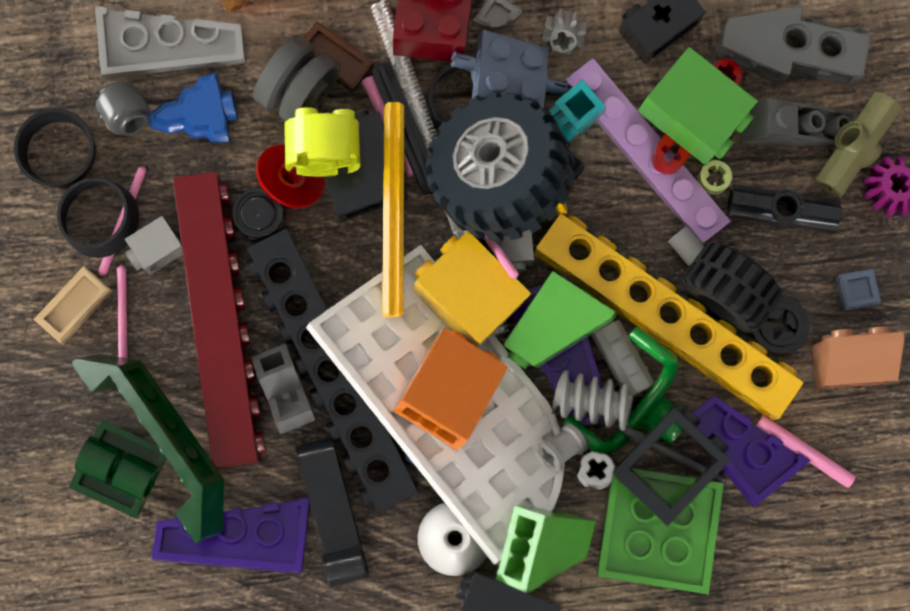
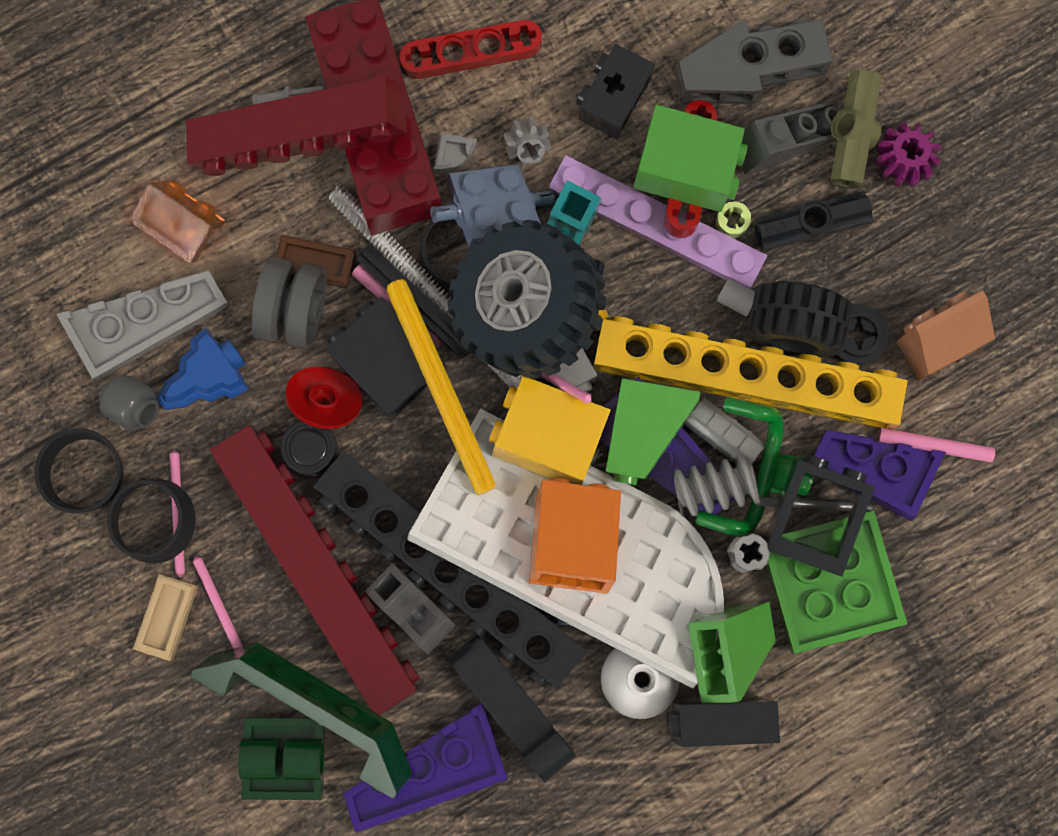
camera: 20 degrees left, 0 degrees up
(153, 246) = (220, 525): light grey brick -> none
(322, 142) = (342, 351): neon yellow brick -> none
(562, 447) = (706, 545): light grey bush -> none
(858, 290) = (917, 268): sand blue tile -> none

